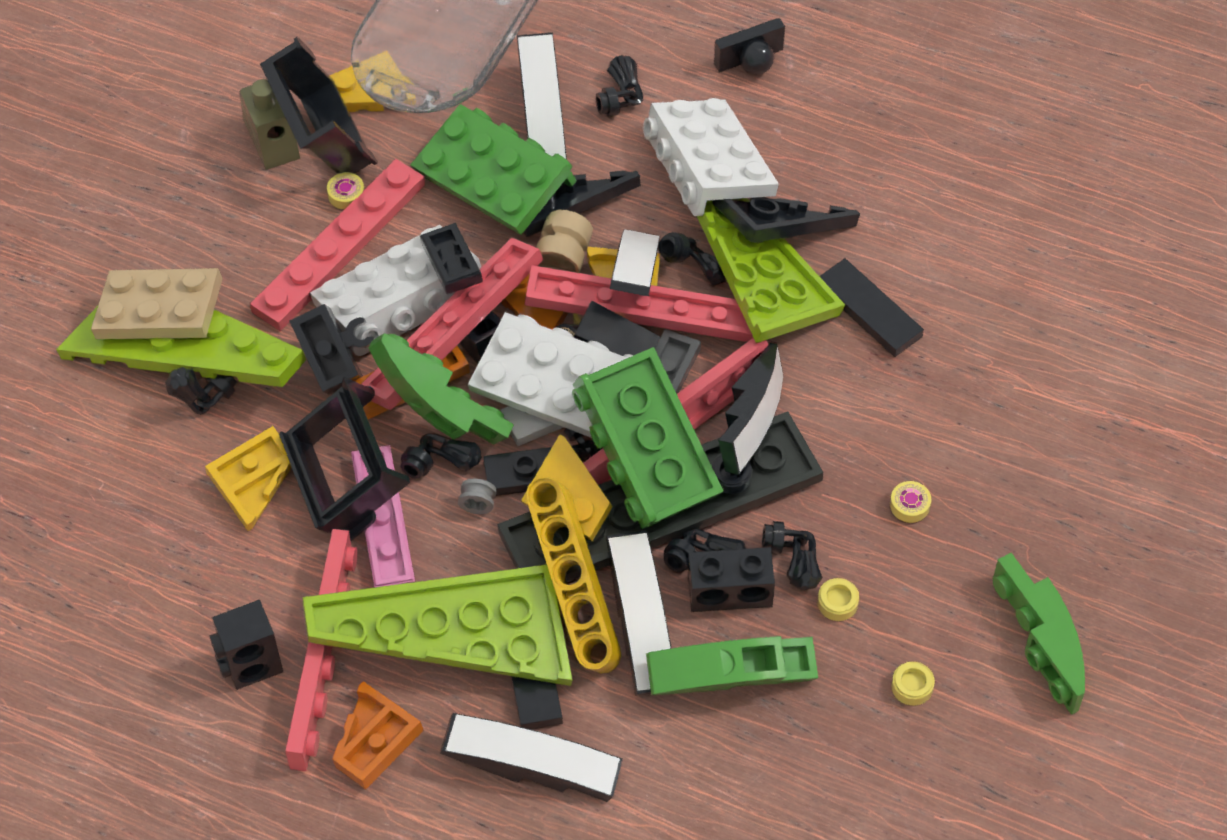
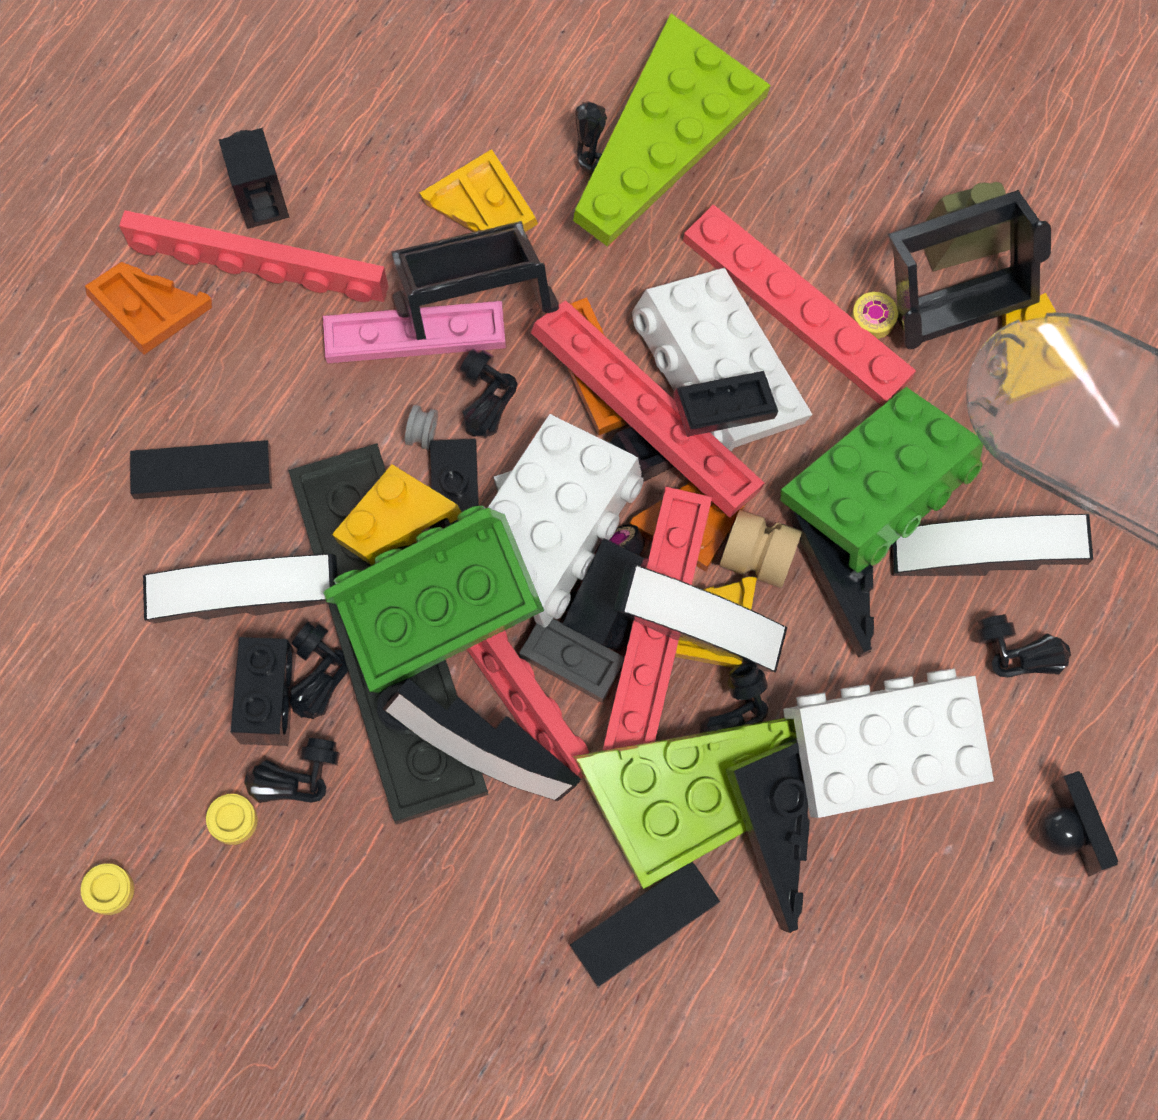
camera: 95 degrees right, 15 degrees up
(157, 304) = (702, 98): tan plate -> none
(329, 347) = (621, 269): black brick -> none
(423, 386) = (539, 361): bright green slope -> none
(475, 622) = (243, 393): lime wing -> none
(531, 755) = (84, 456): white slope -> none
(559, 560) = (280, 508): yellow beam -> none
(731, 665) = (140, 678): bright green slope -> none
(910, 501) = (349, 927): tile -> none
(1052, 638) = (118, 1065): bright green slope -> none

